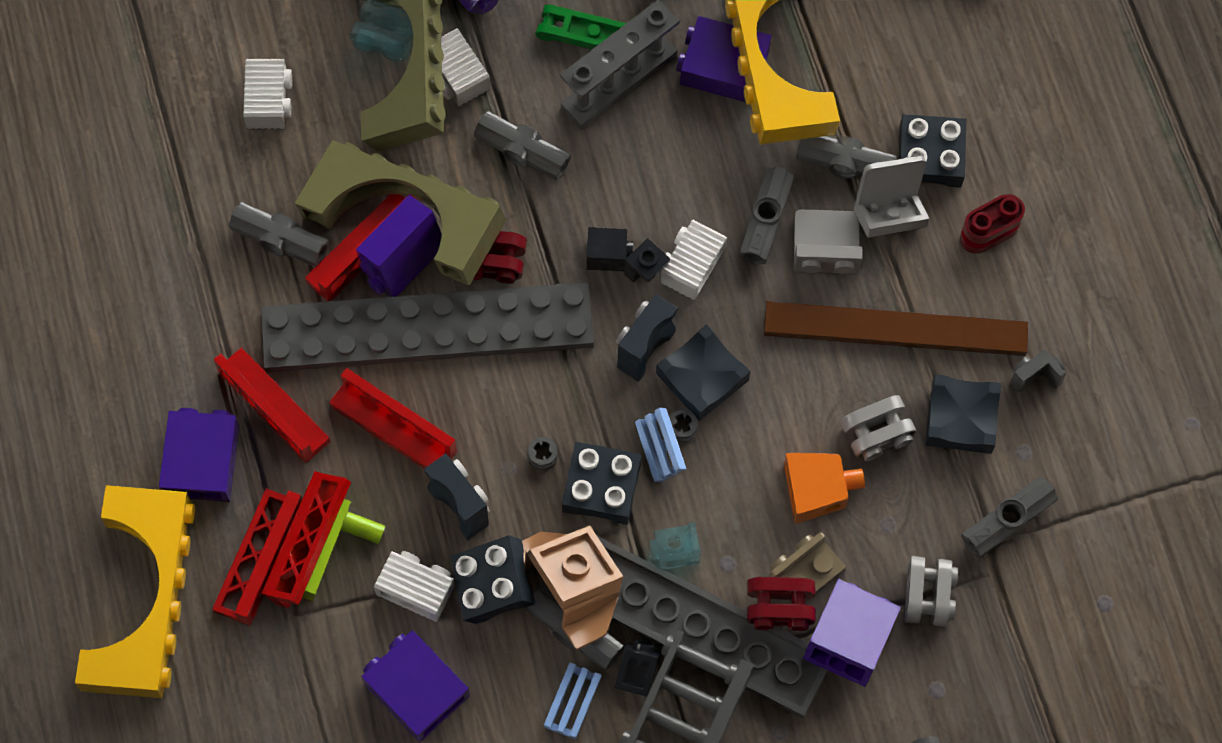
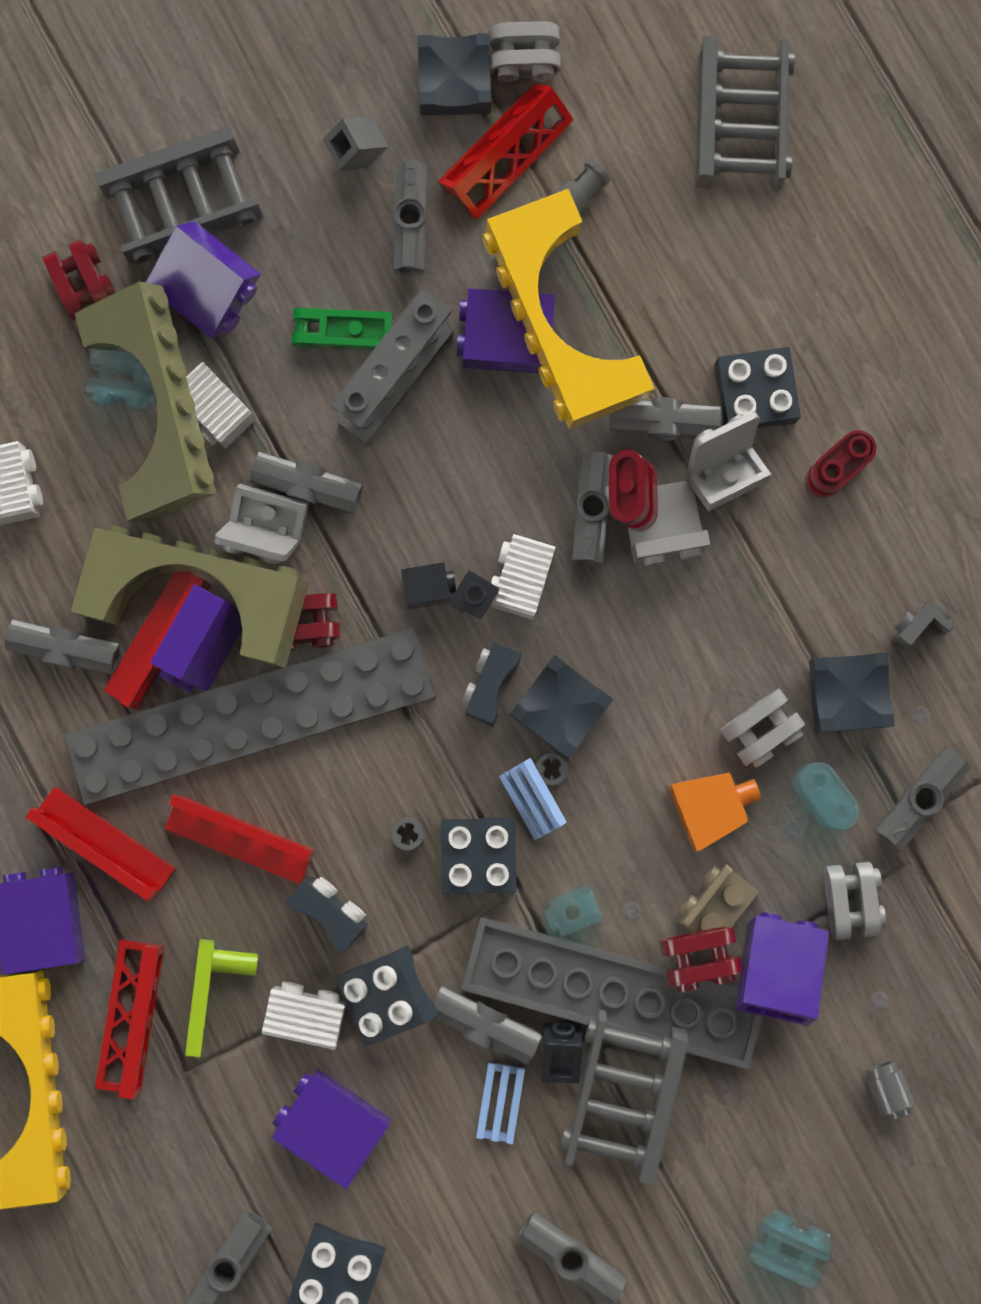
camera: 10 degrees left, 15 degrees up
(305, 539) = (175, 996): red fence -> none
(480, 166) = (263, 524): none -> light grey bracket
(579, 578) = (475, 977): medium nougat piece -> none
(804, 203) = (633, 490): none -> dark red brick
(896, 328) = (758, 606): reddish brown tile -> none
(922, 495) = (826, 796): none -> clear light blue brick

